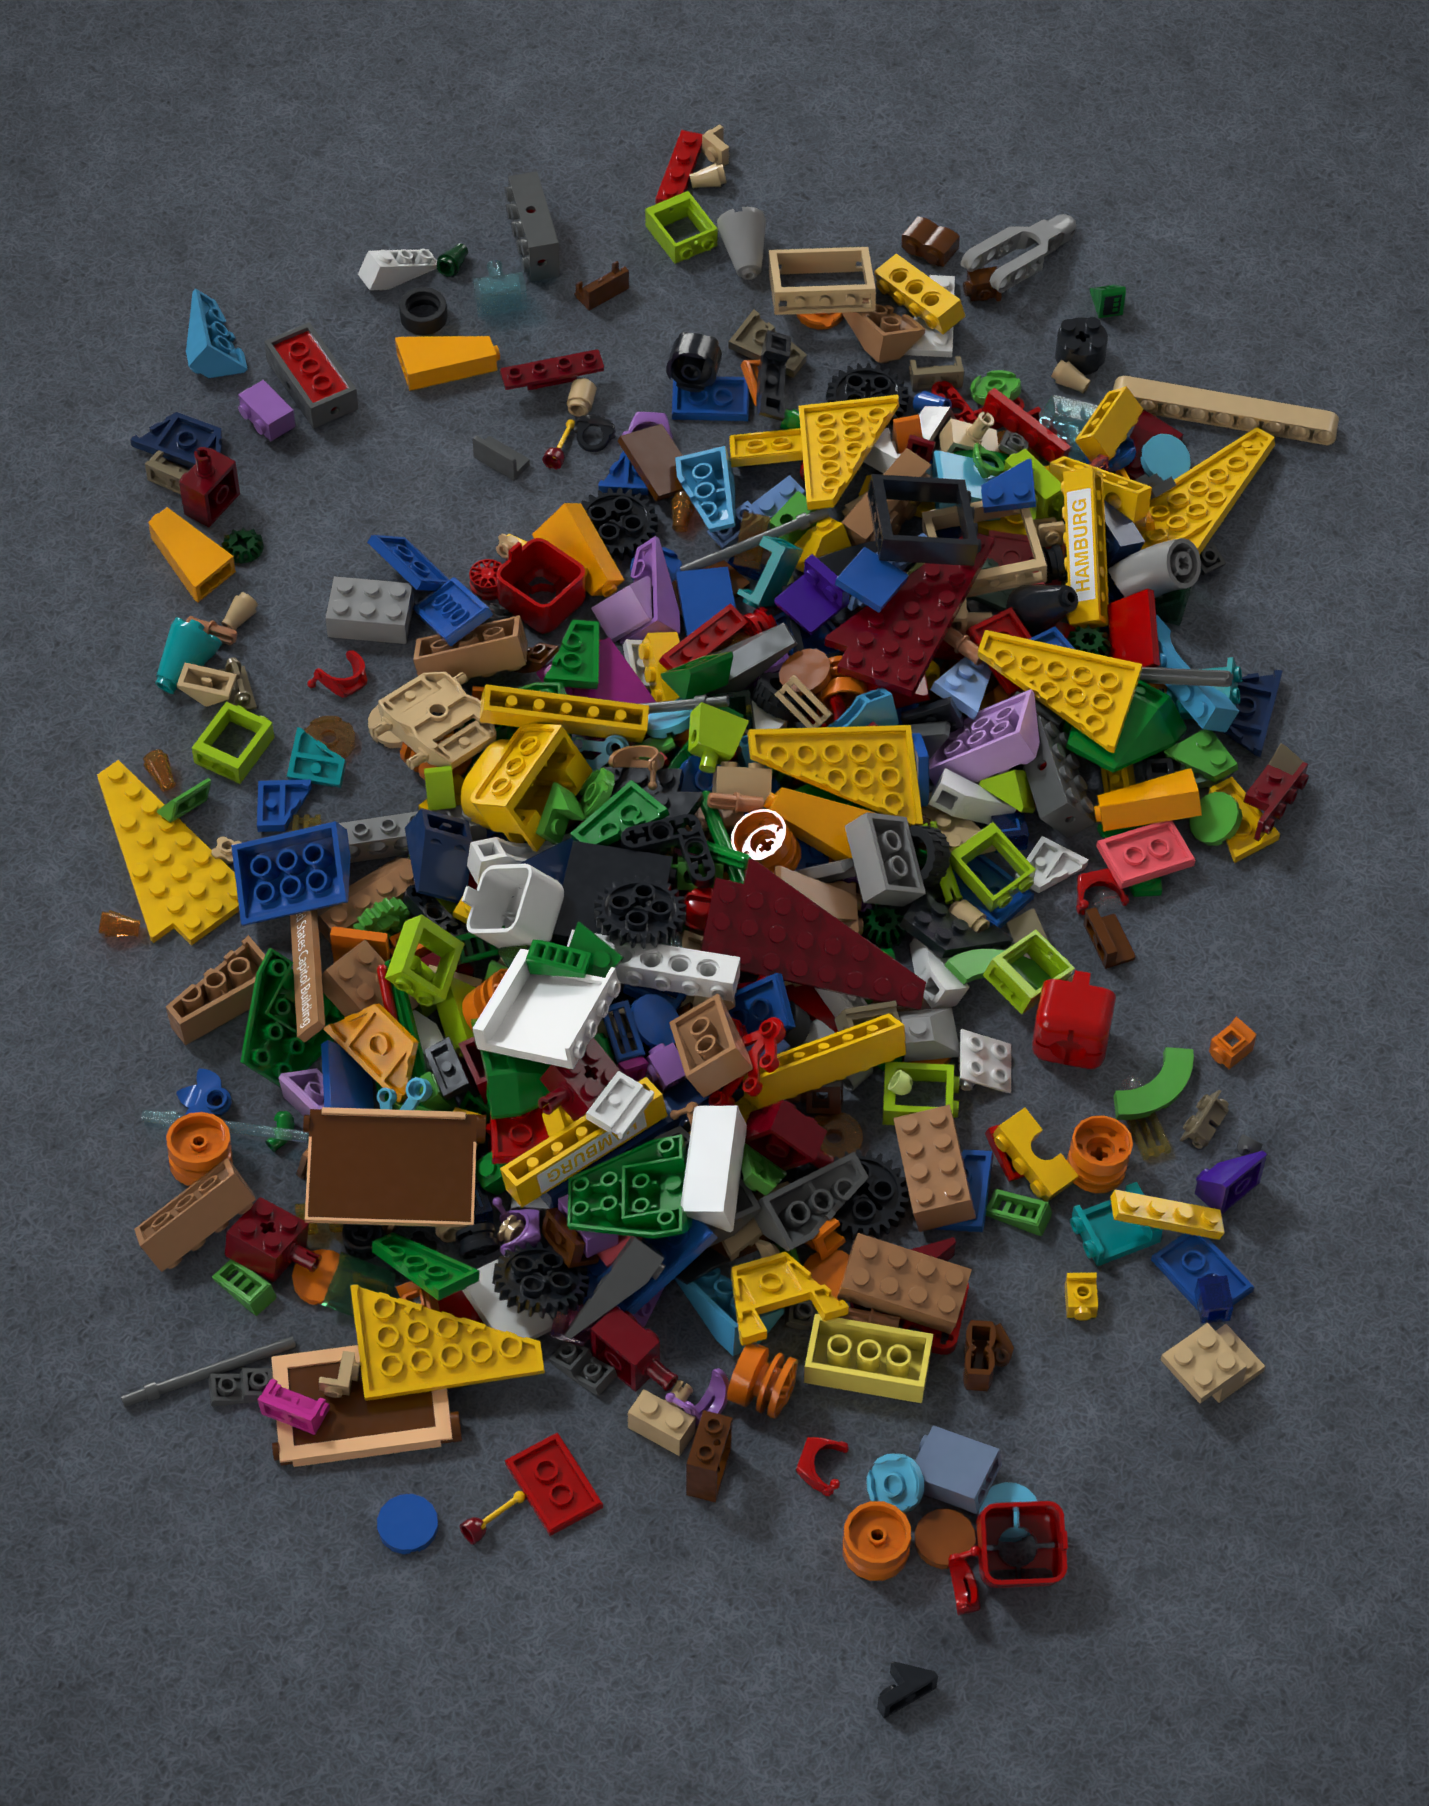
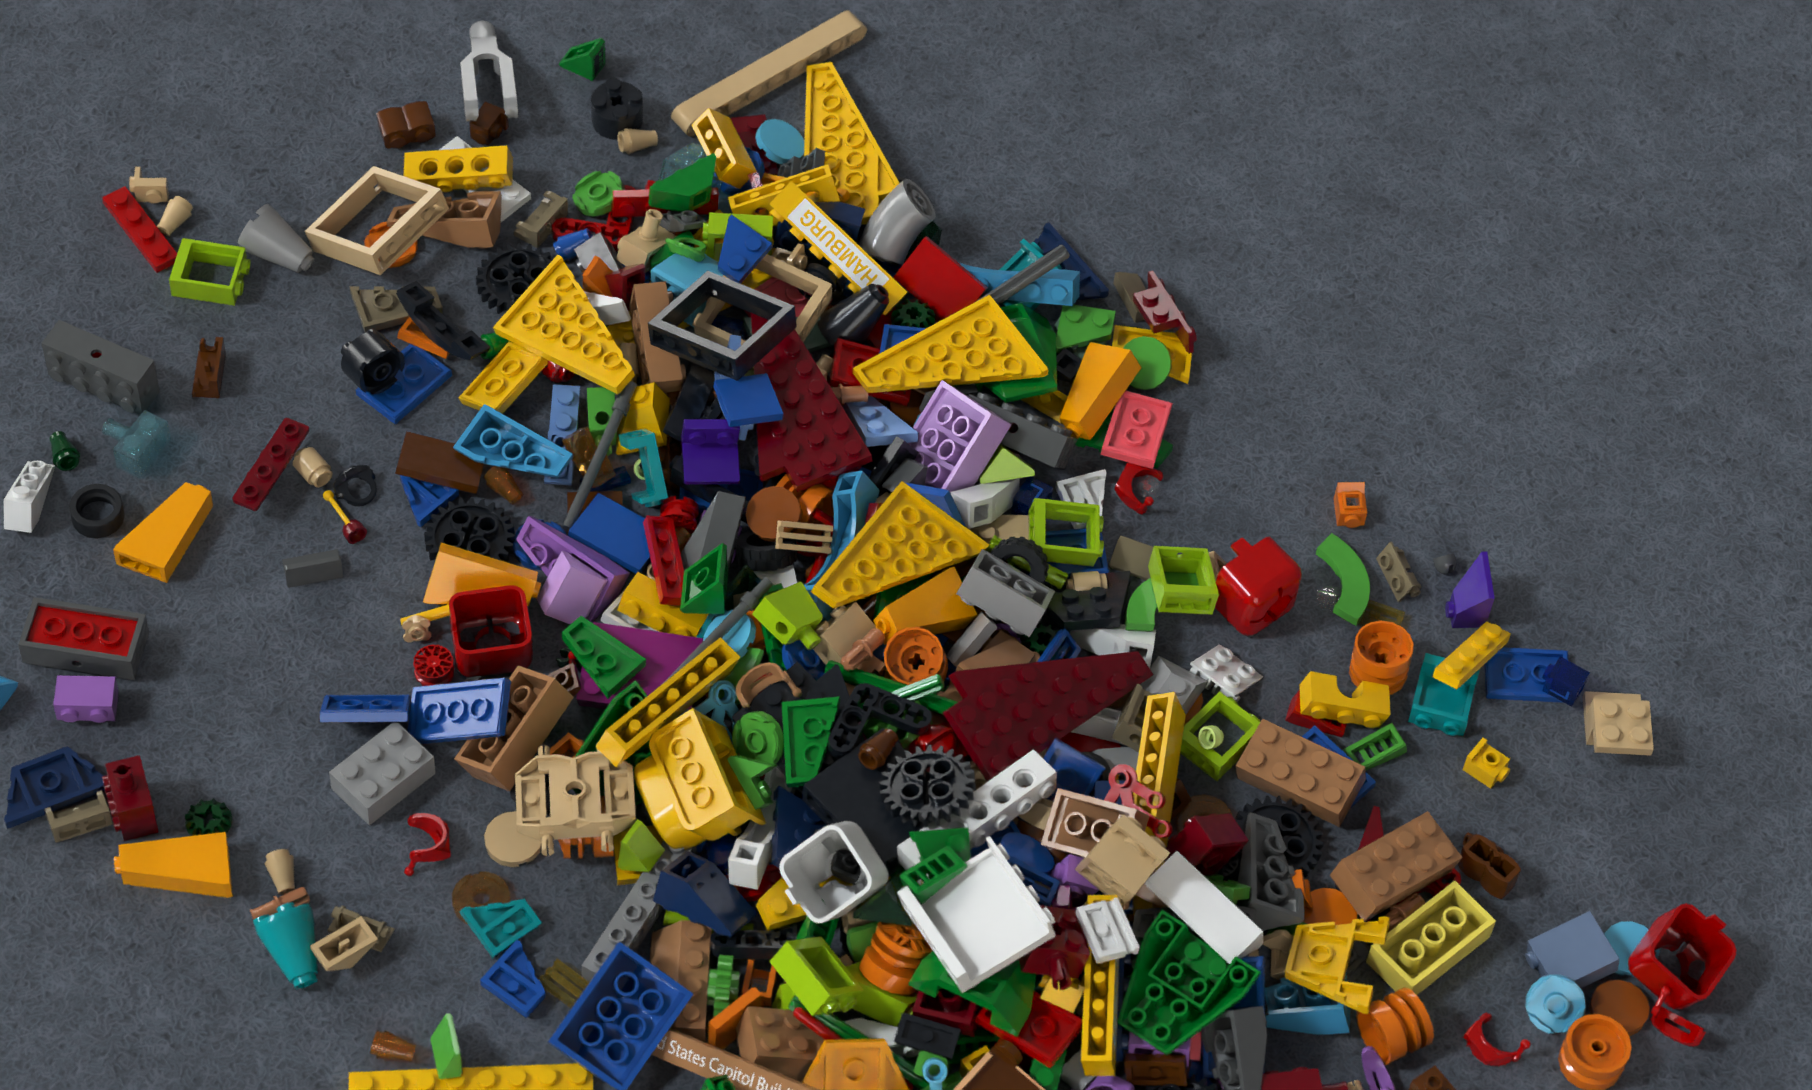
camera: 55 degrees left, 0 degrees up
(221, 850) = (524, 1060): tan plate -> none
(223, 763) = (427, 995): lime window -> none
(645, 862) = (876, 750): none -> reddish brown cone
(648, 419) = (391, 434): medium lavender helmet -> none
(683, 1069) = (1123, 859): none -> tan bracket
(896, 936) = (1054, 645): none -> blue tile
(1043, 425) = (686, 187): none -> green slope
(1108, 938) = (1183, 512): reddish brown panel -> none

